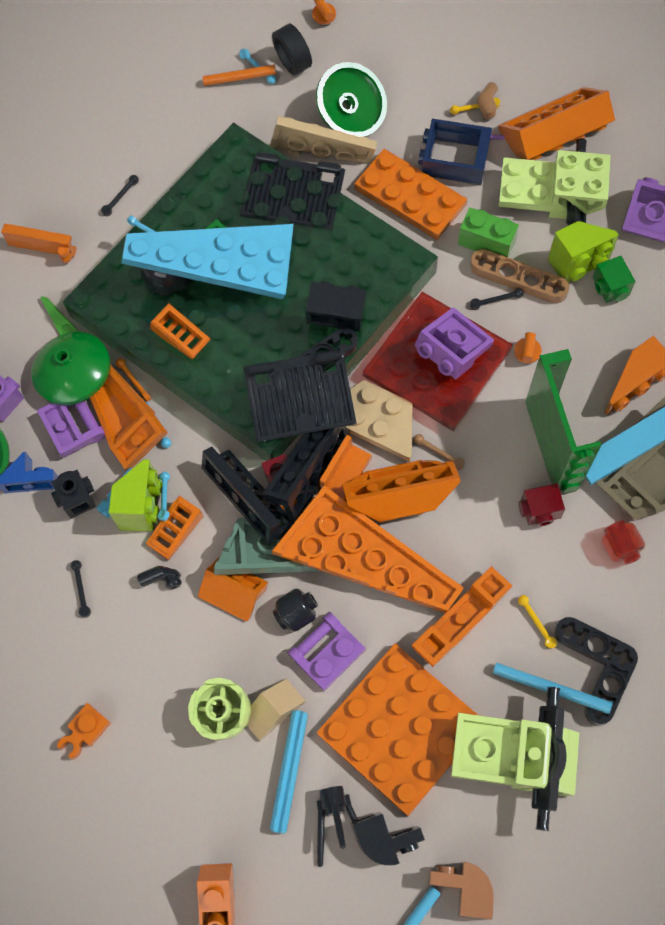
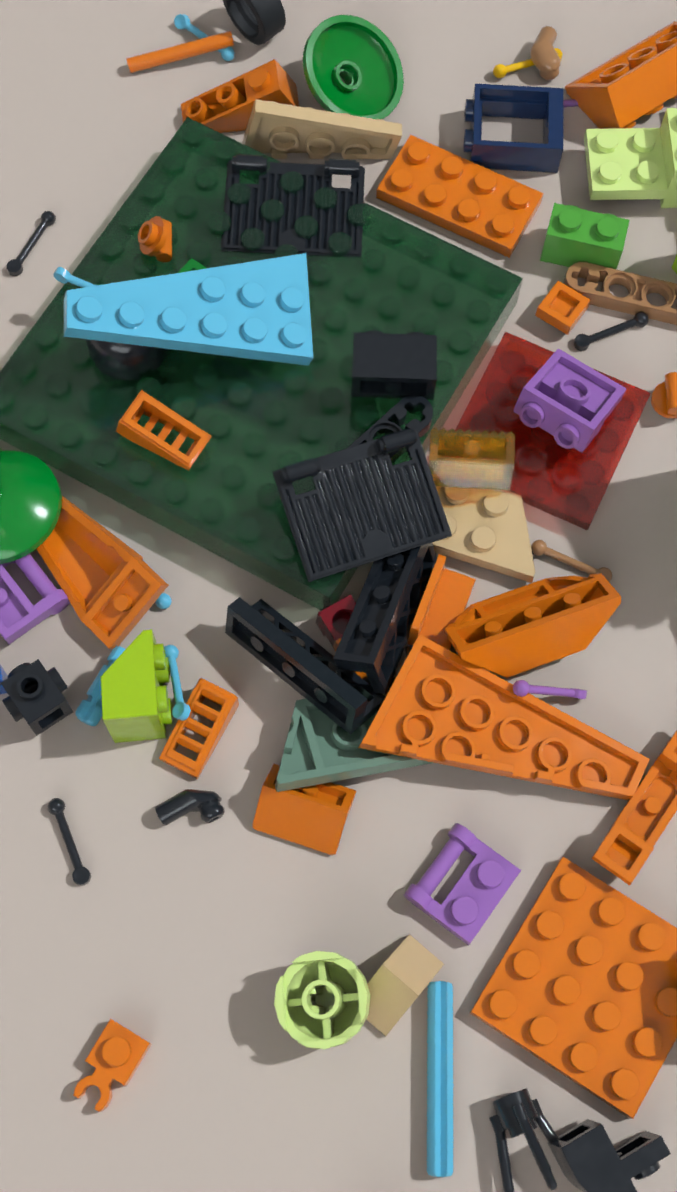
camera: 15 degrees left, 0 degrees up
(121, 364) = (75, 492): orange hinge -> none
(197, 203) = (156, 238): none -> orange plate
(263, 115) = (231, 104): none -> orange slope
(295, 610) = (406, 828): black head -> none
(378, 374) = (471, 458): none -> clear yellow brick
(385, 530) = (522, 688): none -> medium lavender hinge
(465, 279) = (562, 307): none -> orange plate

